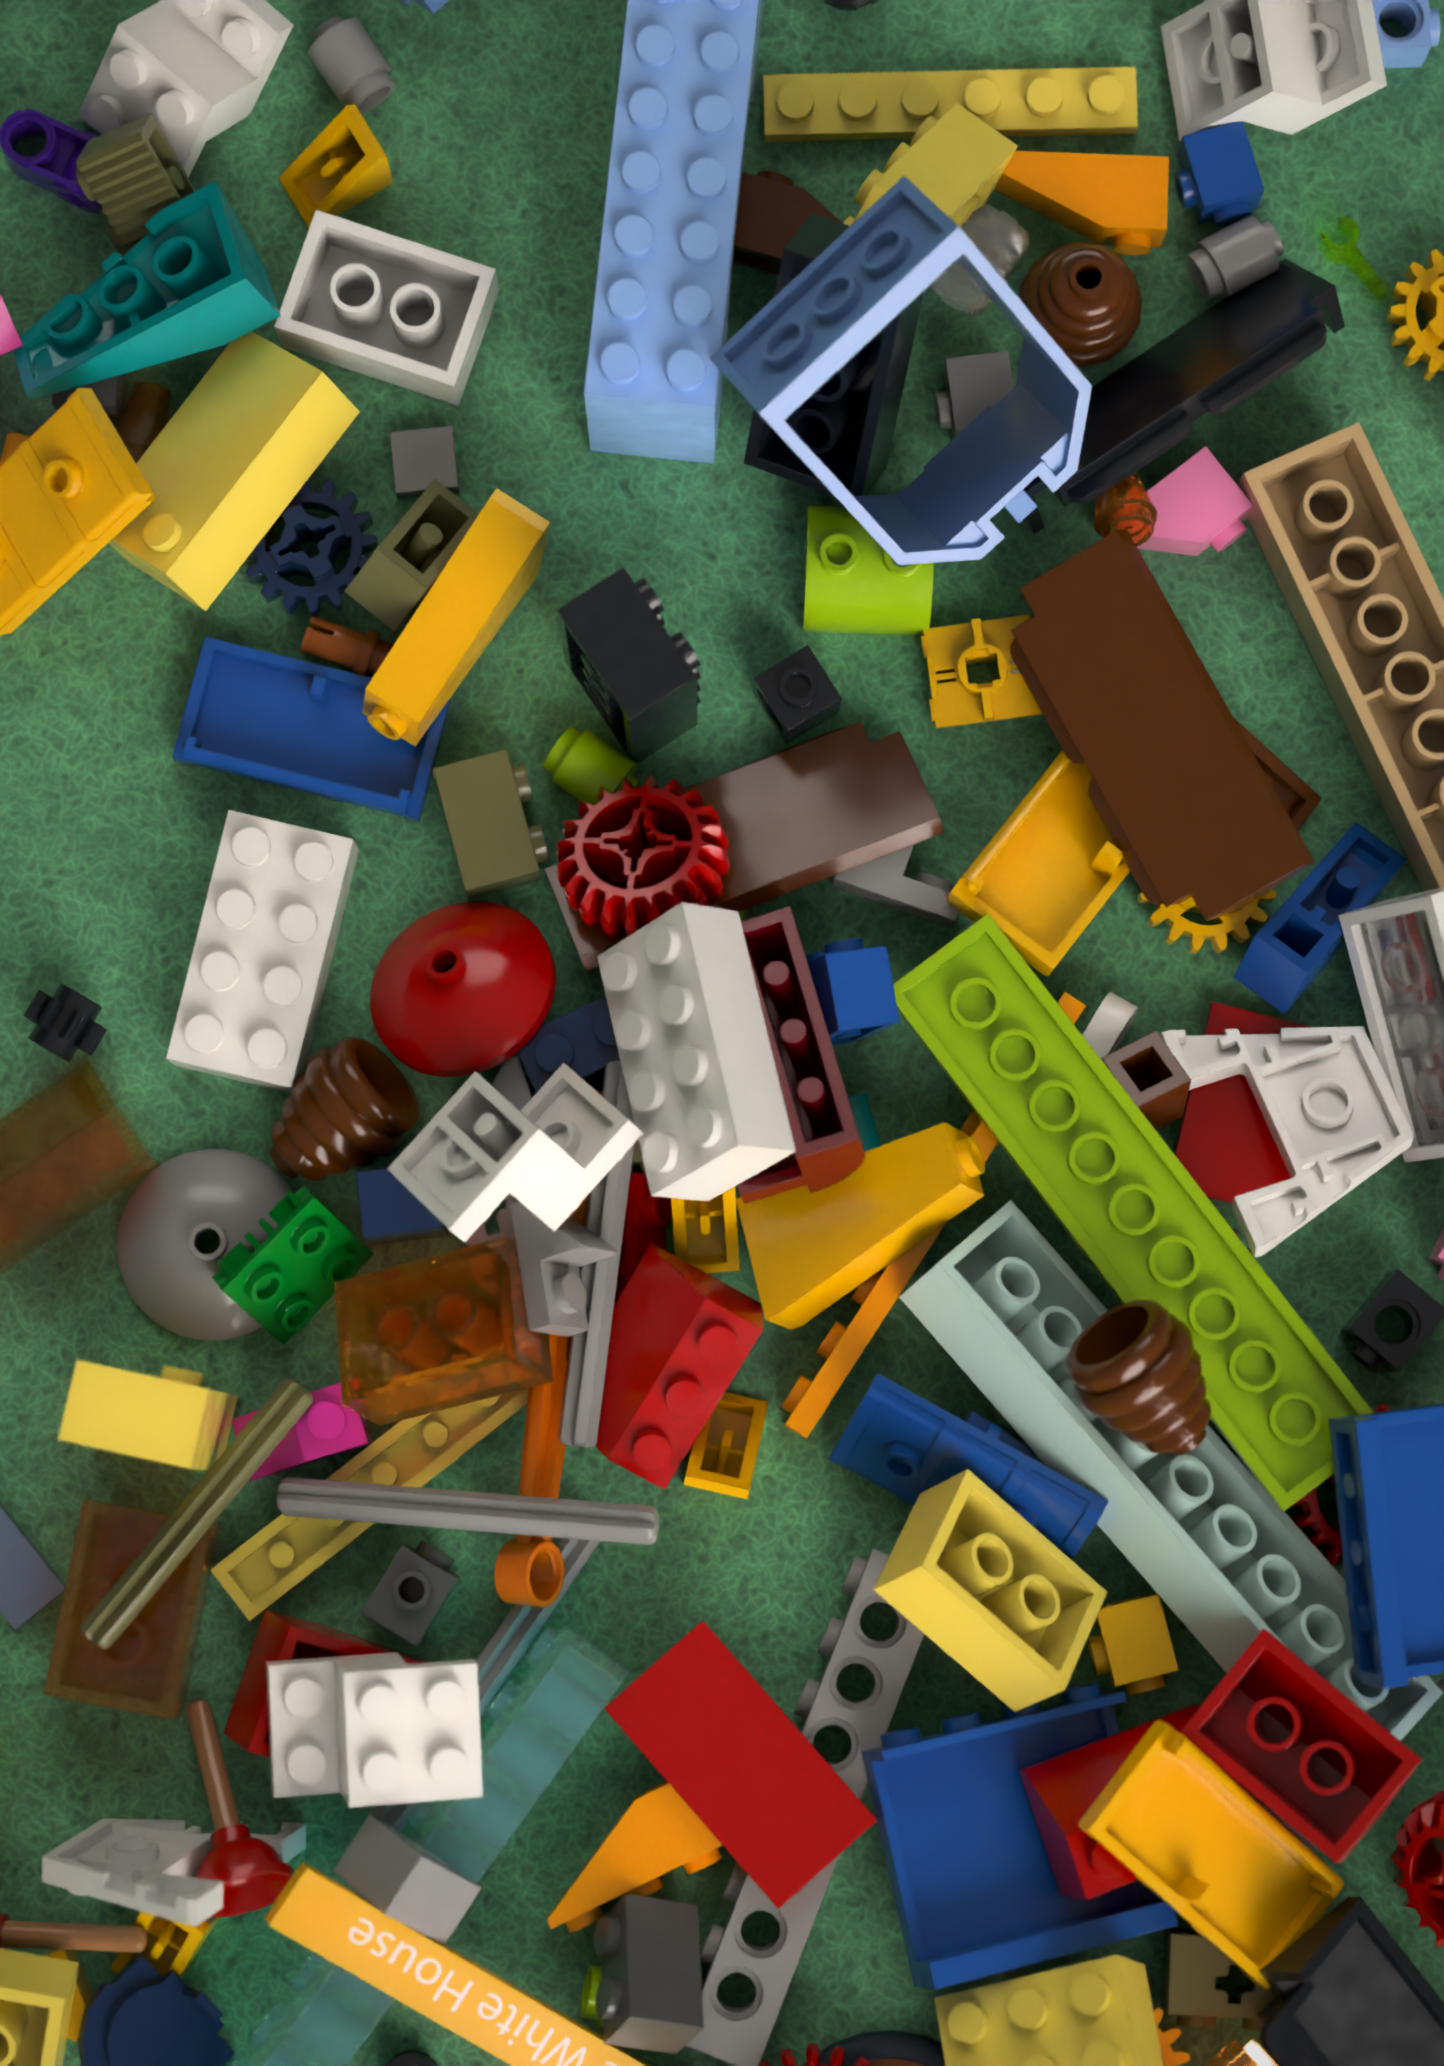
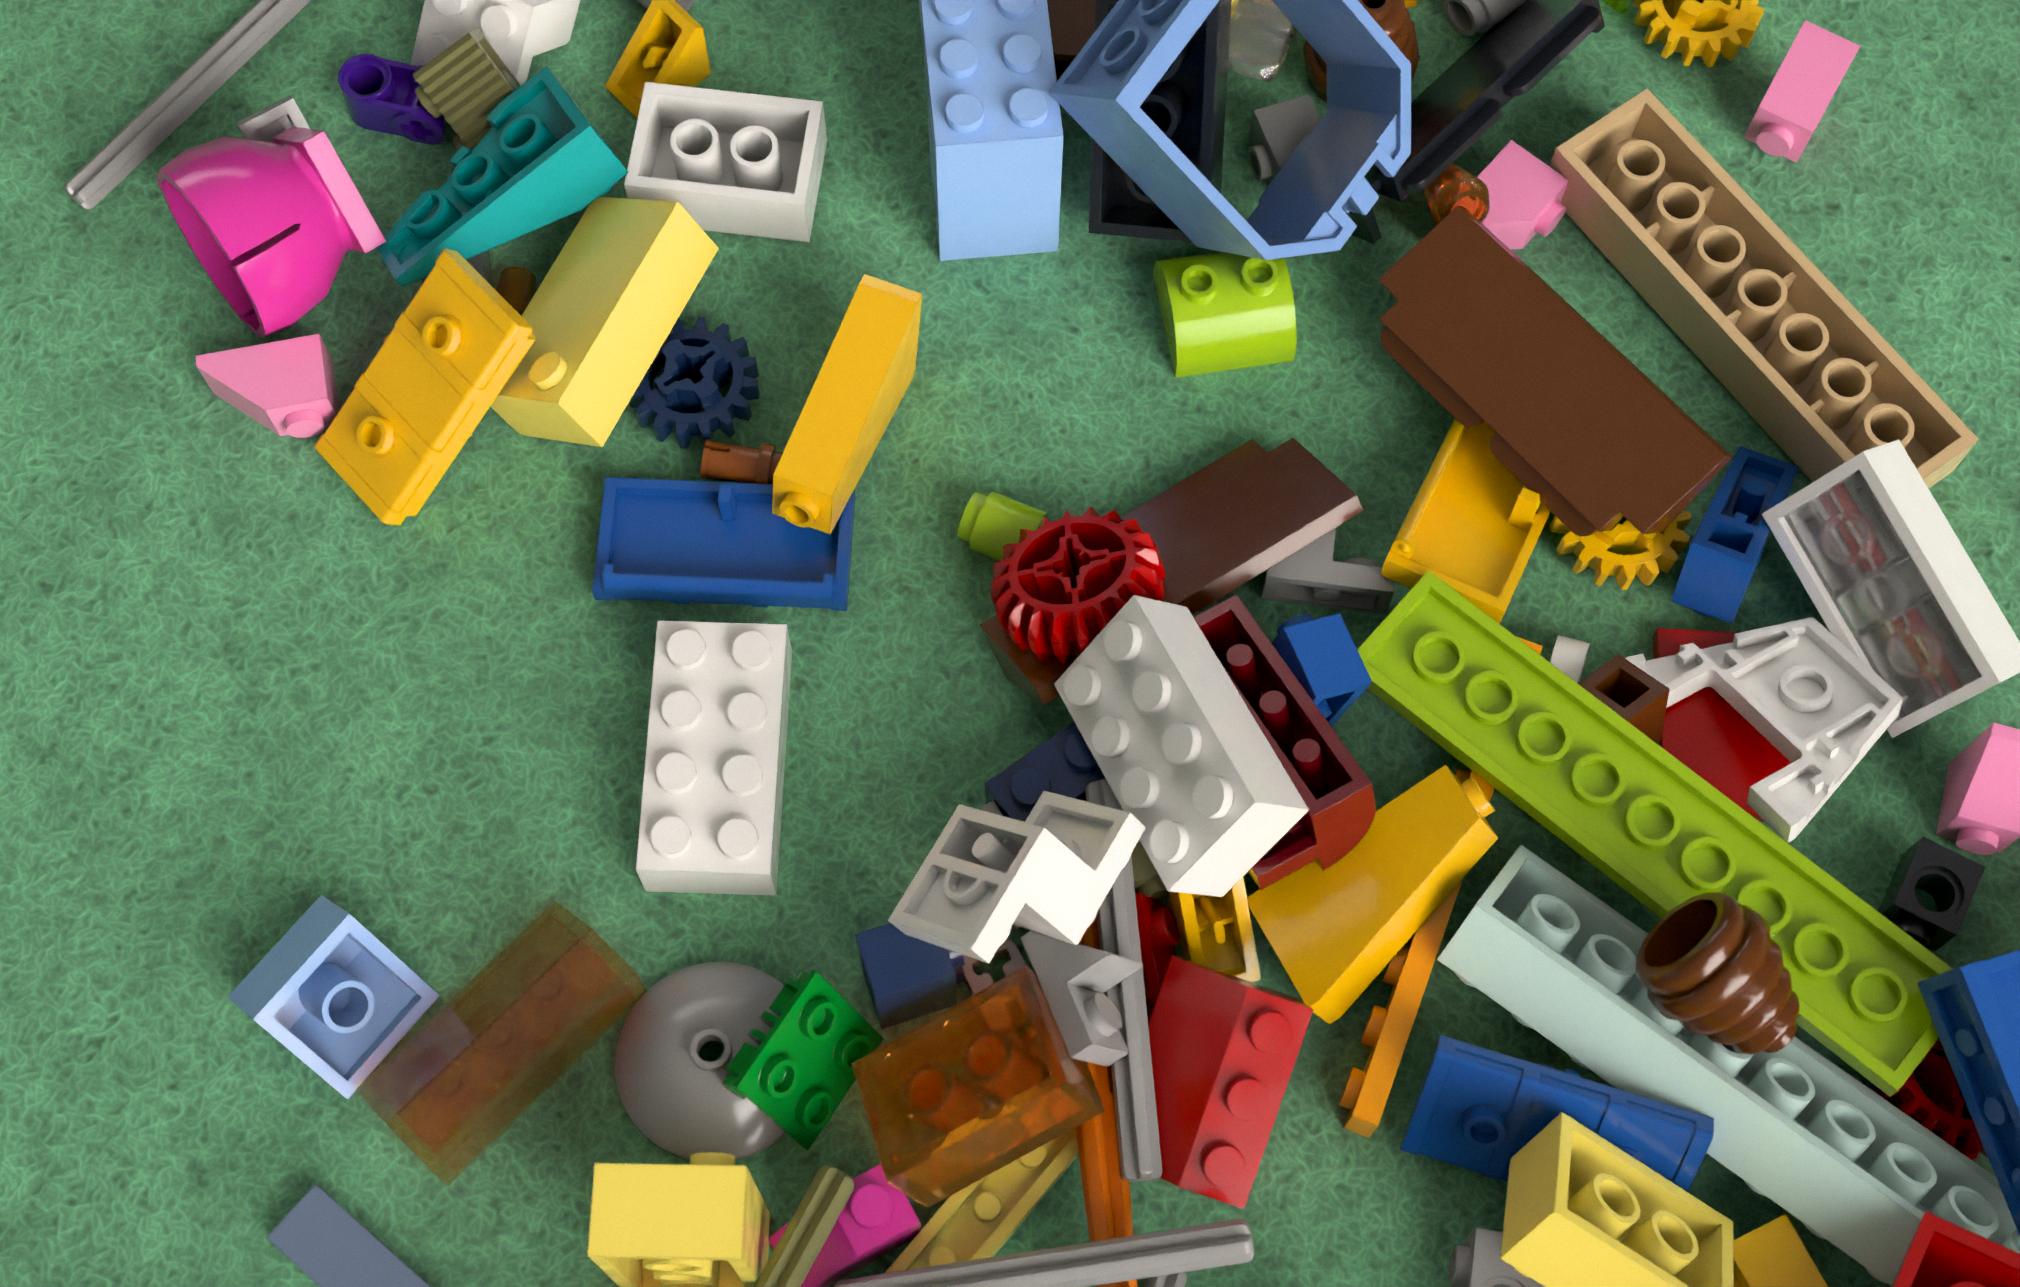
camera: 10 degrees left, 15 degrees down
(65, 1022) = (526, 863): black gear -> none
(343, 1112) = (824, 894): reddish brown piece -> none
(412, 555) = (789, 361): olive brick -> none
(422, 457) = (787, 294): light grey tile -> none
(479, 1007) = (923, 752): red dish -> none
(488, 823) = (917, 596): olive brick -> none
(630, 663) = (1028, 399): black brick -> none
(728, 1447) = (1296, 1164): yellow slope -> none
(796, 694) = (1186, 424): black brick -> none
(967, 703) = (1342, 405): yellow piece -> none

